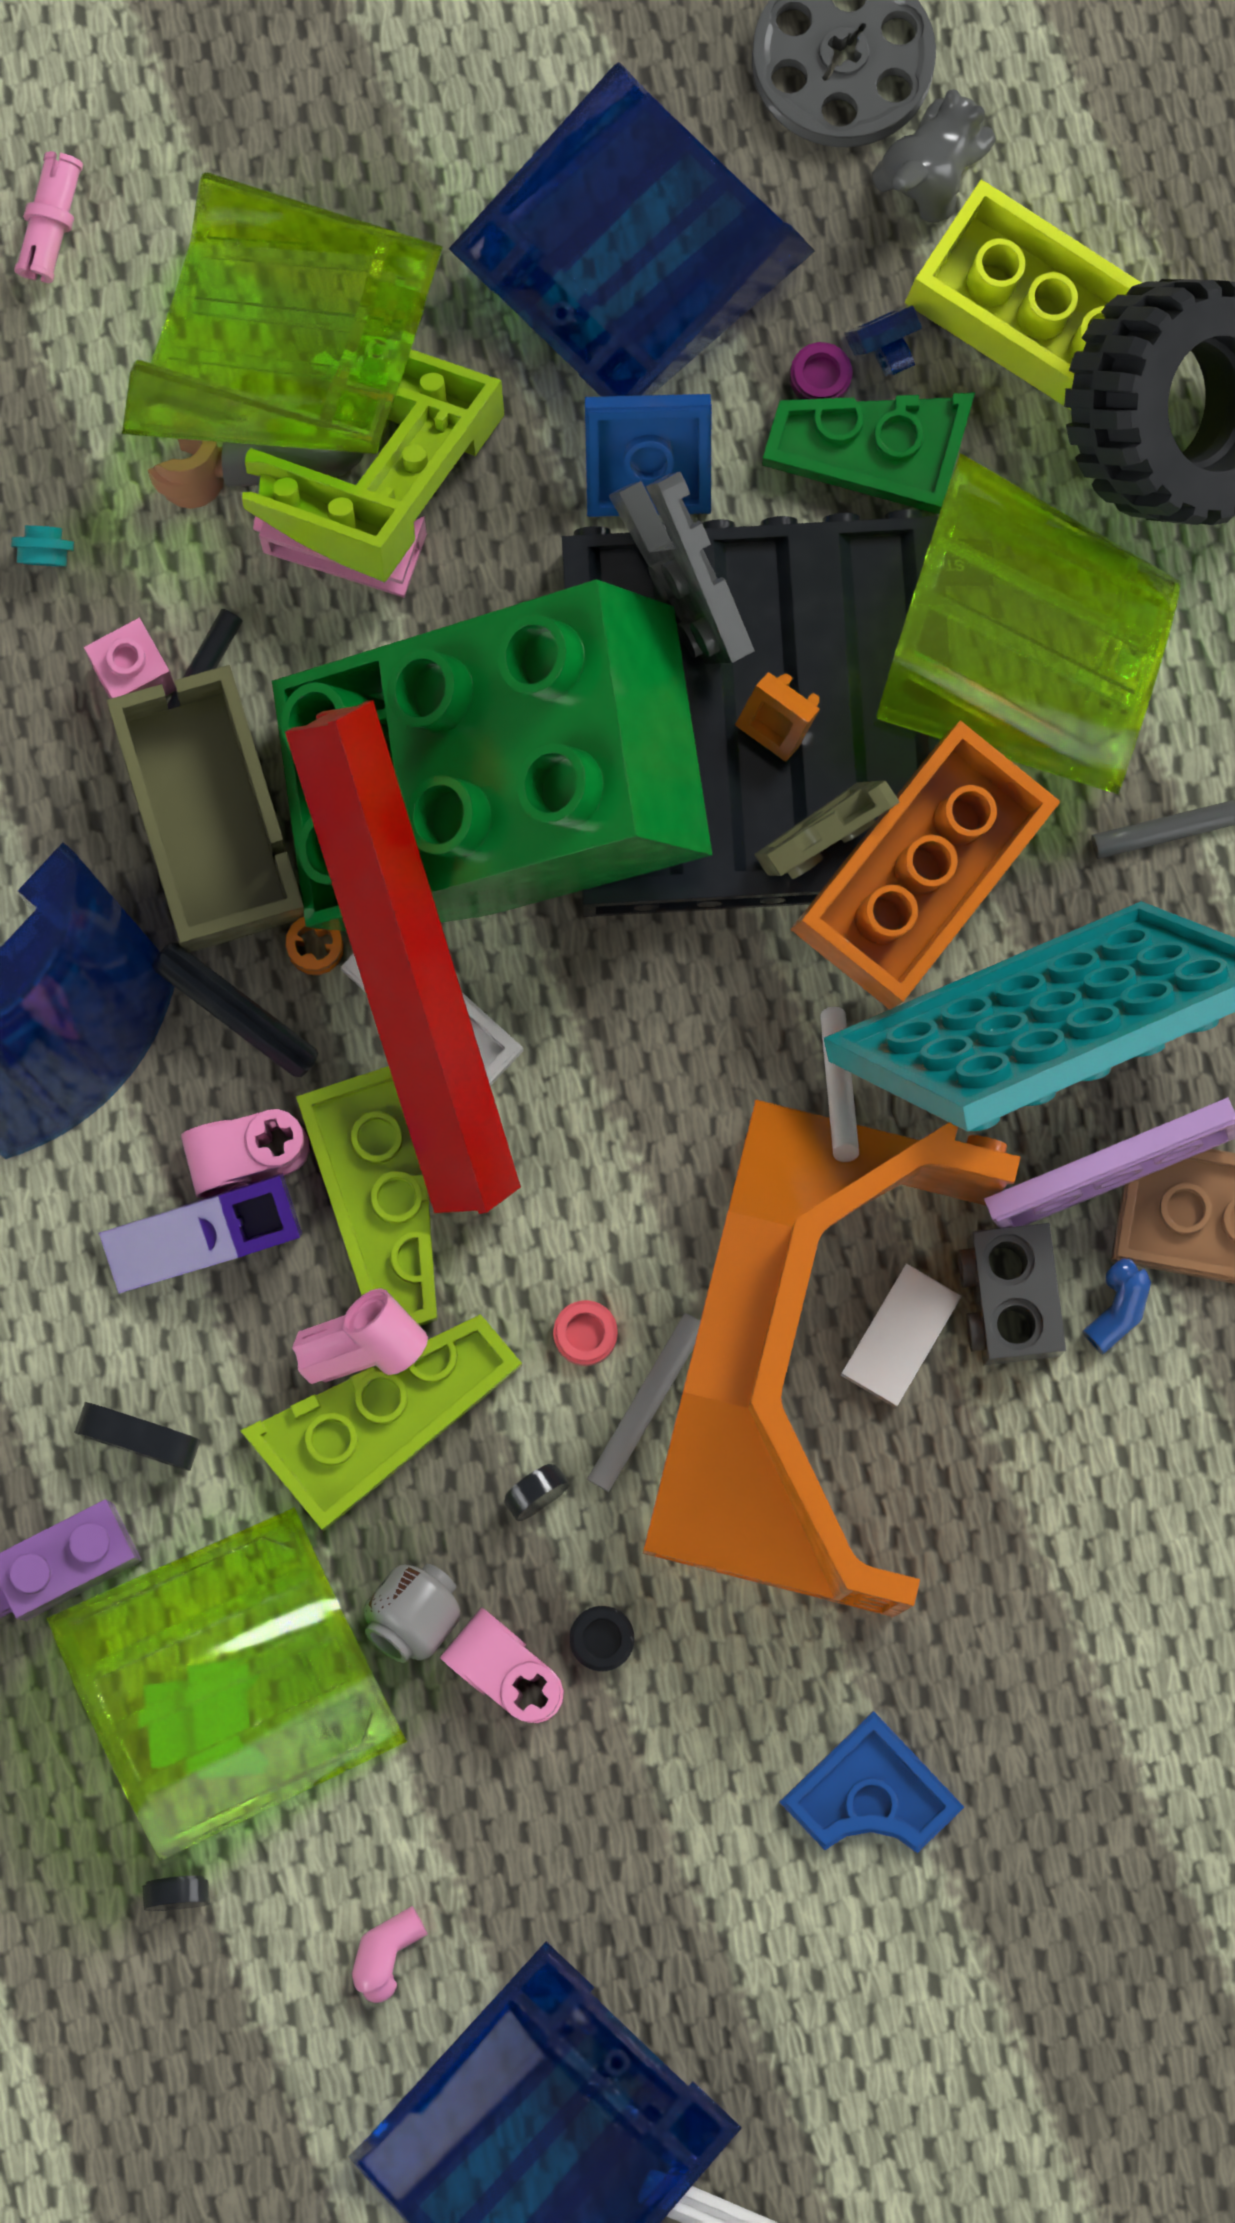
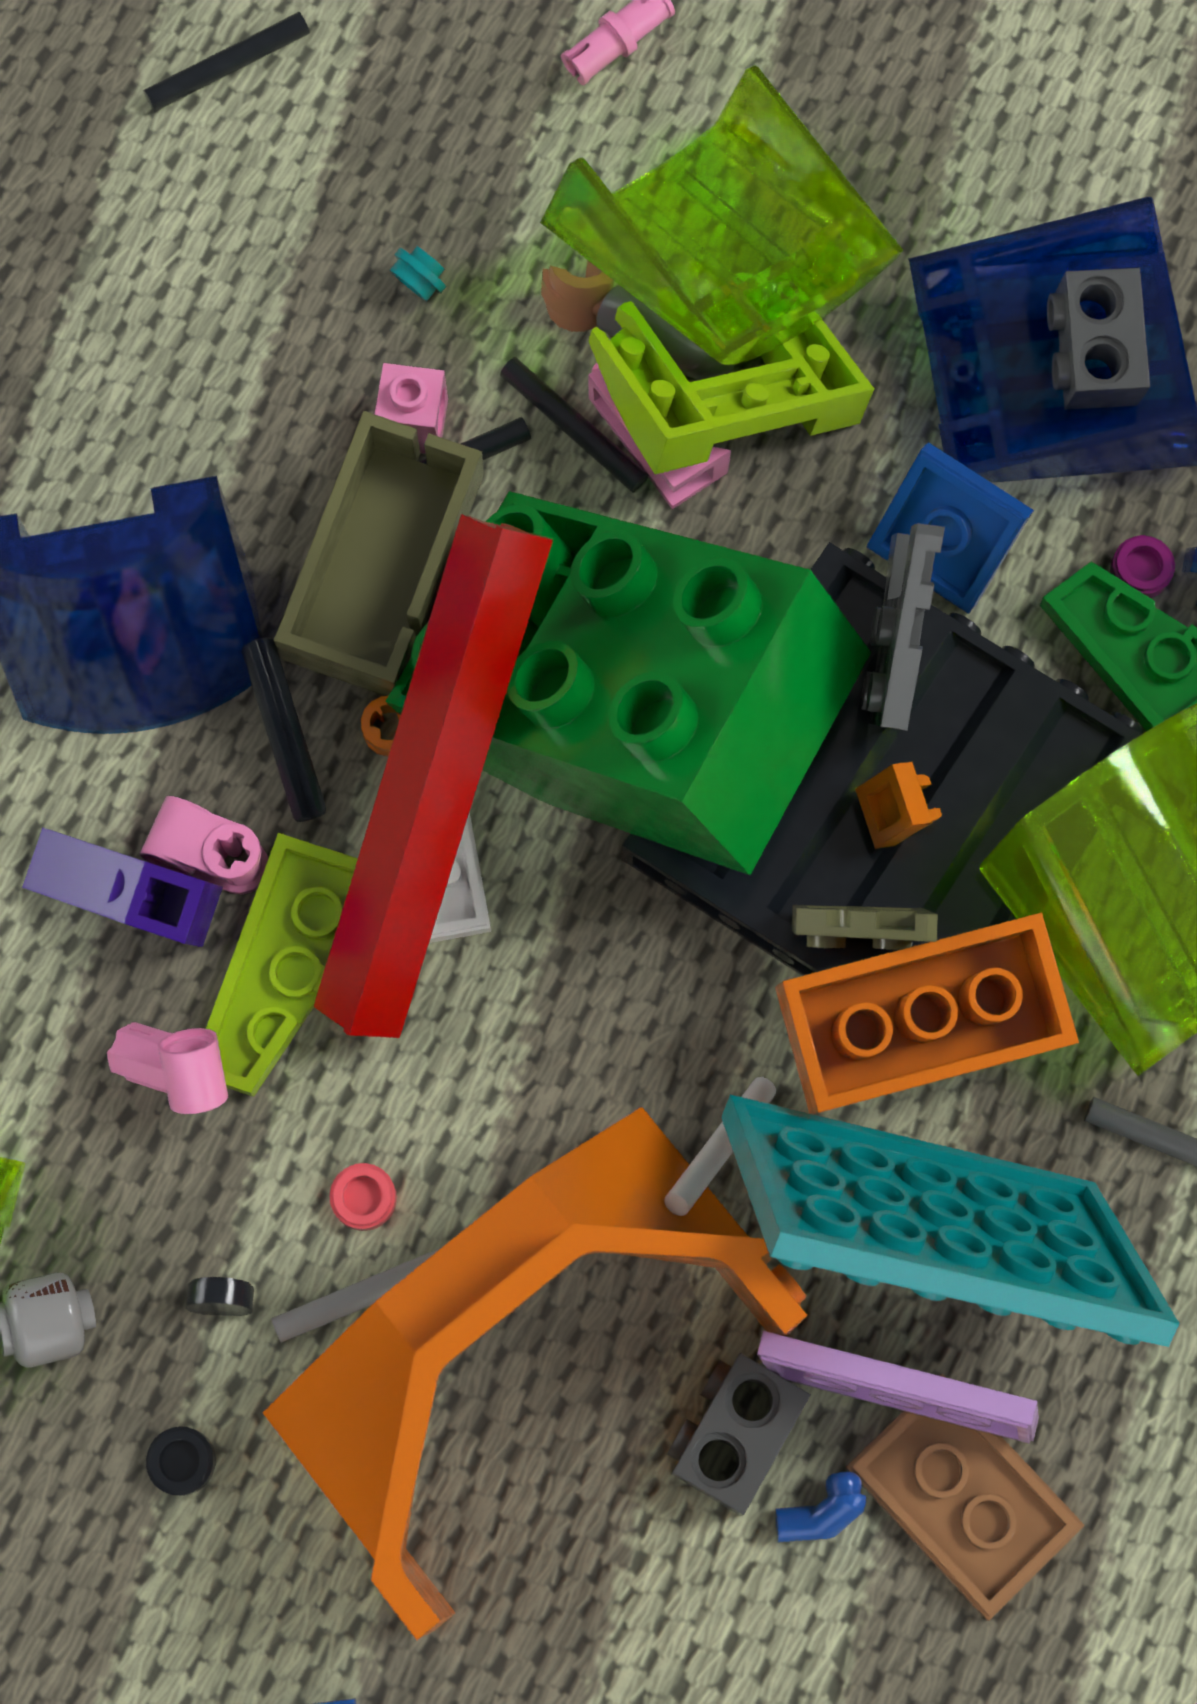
camera: 40 degrees right, 5 degrees down
(269, 584) = (574, 424): none -> black bar
(366, 1428) = (127, 1140): lime wing -> none
(496, 1662) = (79, 1413): bright pink piece -> none
(668, 199) = (1113, 340): none -> dark grey brick
(901, 1335) = (619, 1395): white tile -> none

